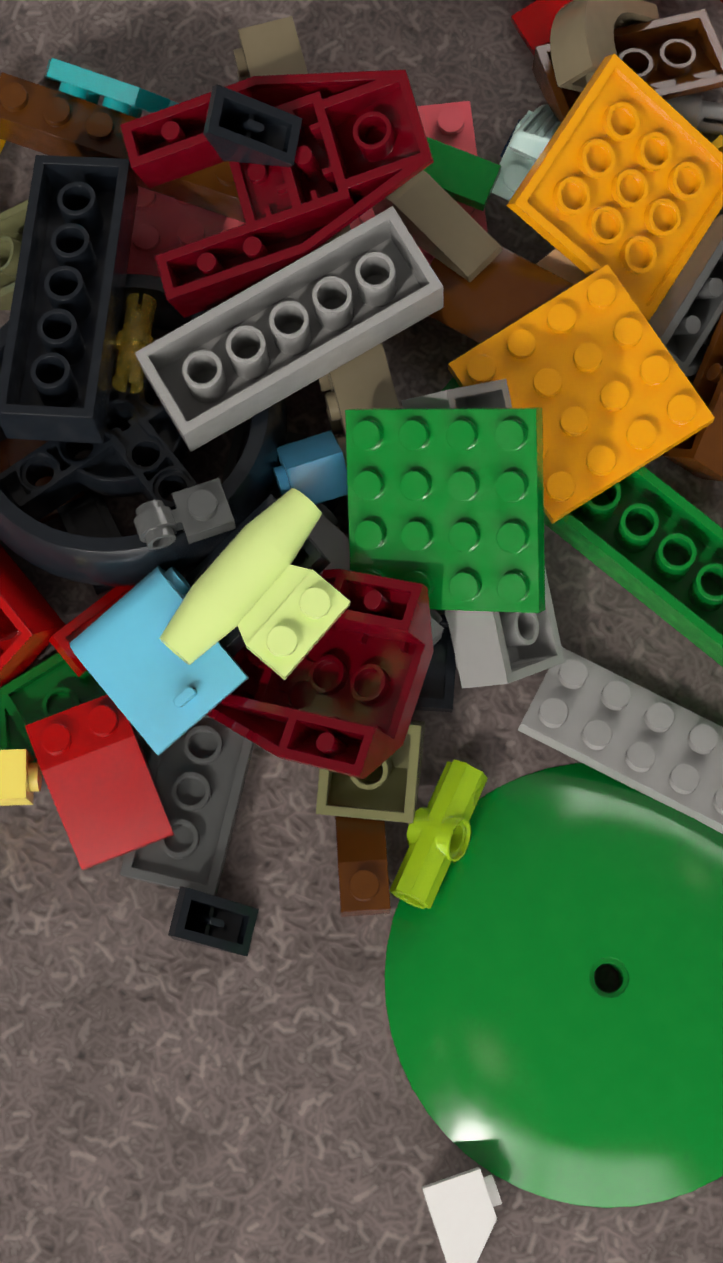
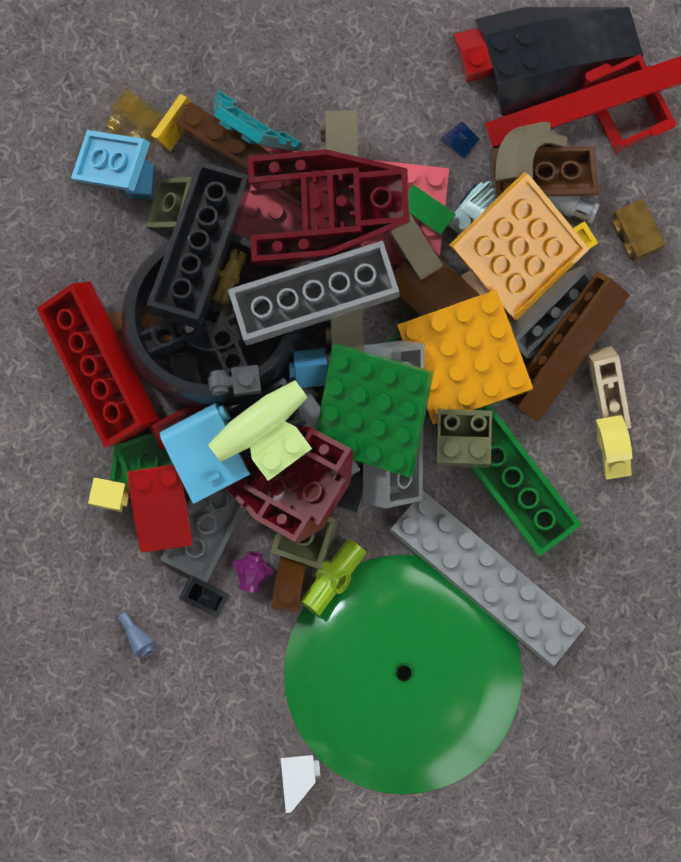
camera: 10 degrees right, 5 degrees up
(115, 1031) = (139, 641): none -> sand blue cone
(250, 130) = (317, 182): black slope -> none
(291, 857) = (252, 571): none -> magenta rock
(476, 52) = (460, 139): none -> clear blue slope
(616, 530) = (463, 438): none -> olive slope

